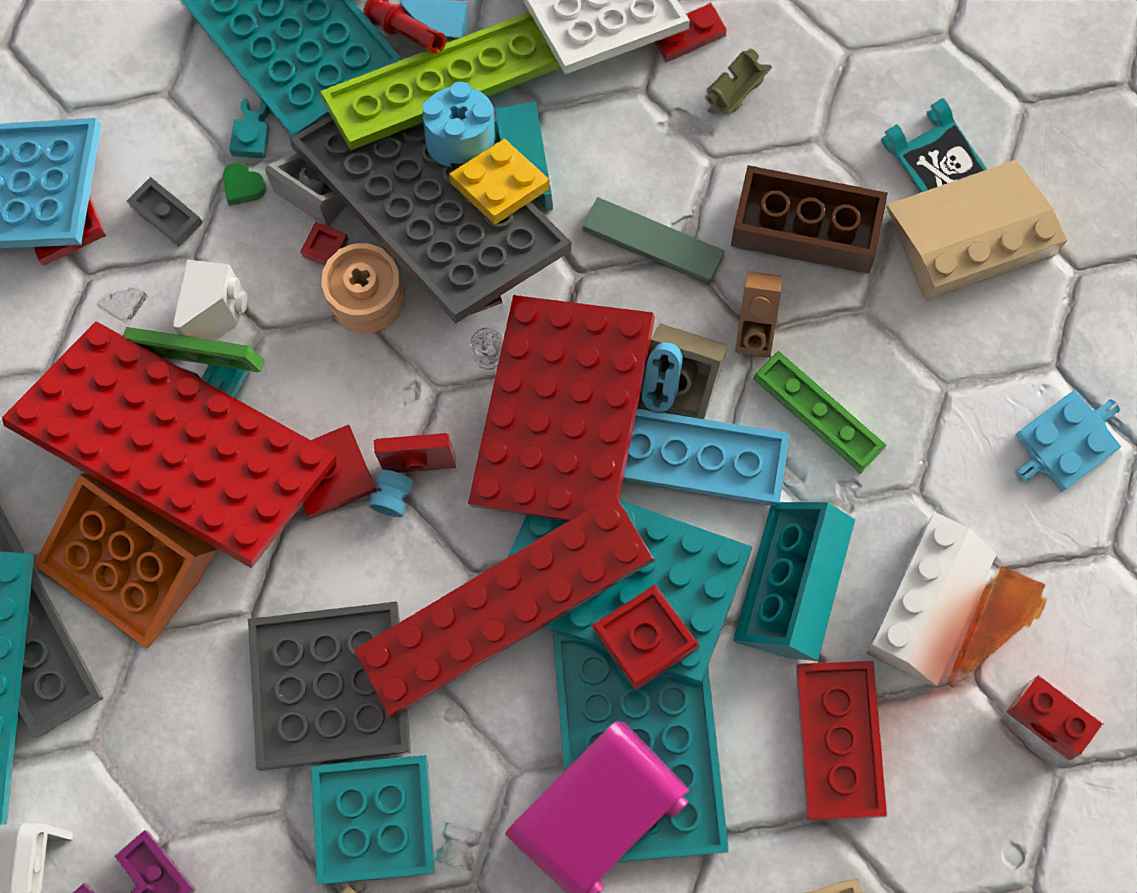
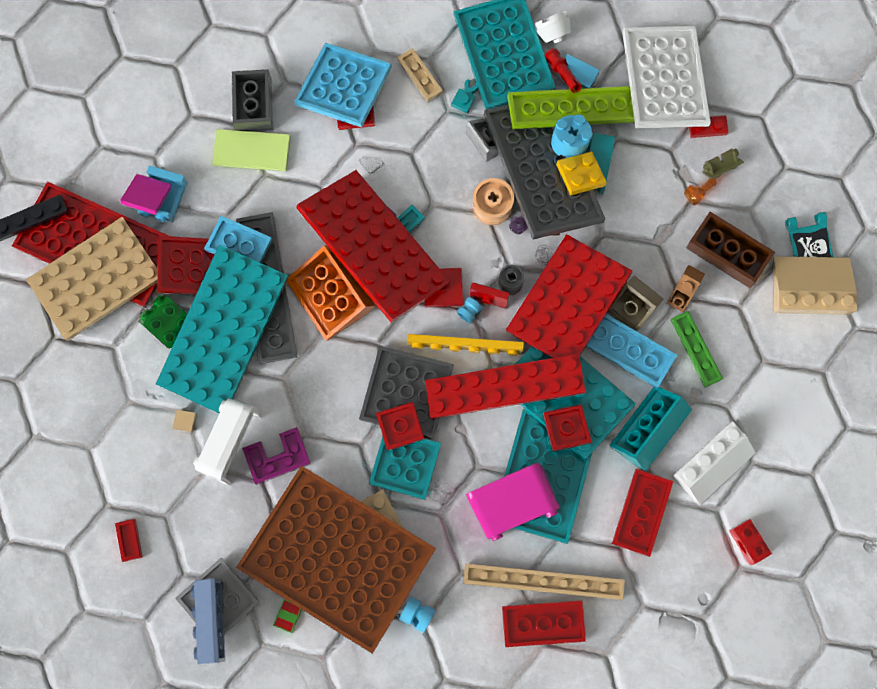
camera: 20 degrees right, 5 degrees up
(157, 122) = (420, 75): none -> tan plate
(164, 211) = (408, 124): dark grey plate -> none
(197, 349) = (400, 203): bright green tile -> none
(209, 300) = (414, 181): white slope -> none
(242, 185) = (451, 124): green tile -> none
(323, 243) = (481, 171): red plate -> none
(337, 753) = (400, 426): none -> red plate
(390, 562) = (473, 345): none -> yellow plate
(425, 322) = (514, 228): none -> clear purple plate
(445, 410) = (511, 279): none -> dark grey wheel
(653, 240) = (647, 230): sand green tile -> none
(654, 375) = (621, 301): medium azure beam -> none
(712, 149) = (695, 194): none -> clear orange bar
(1002, 611) = (746, 482): clear orange slope -> none
(1068, 440) = (815, 411): medium azure plate -> none

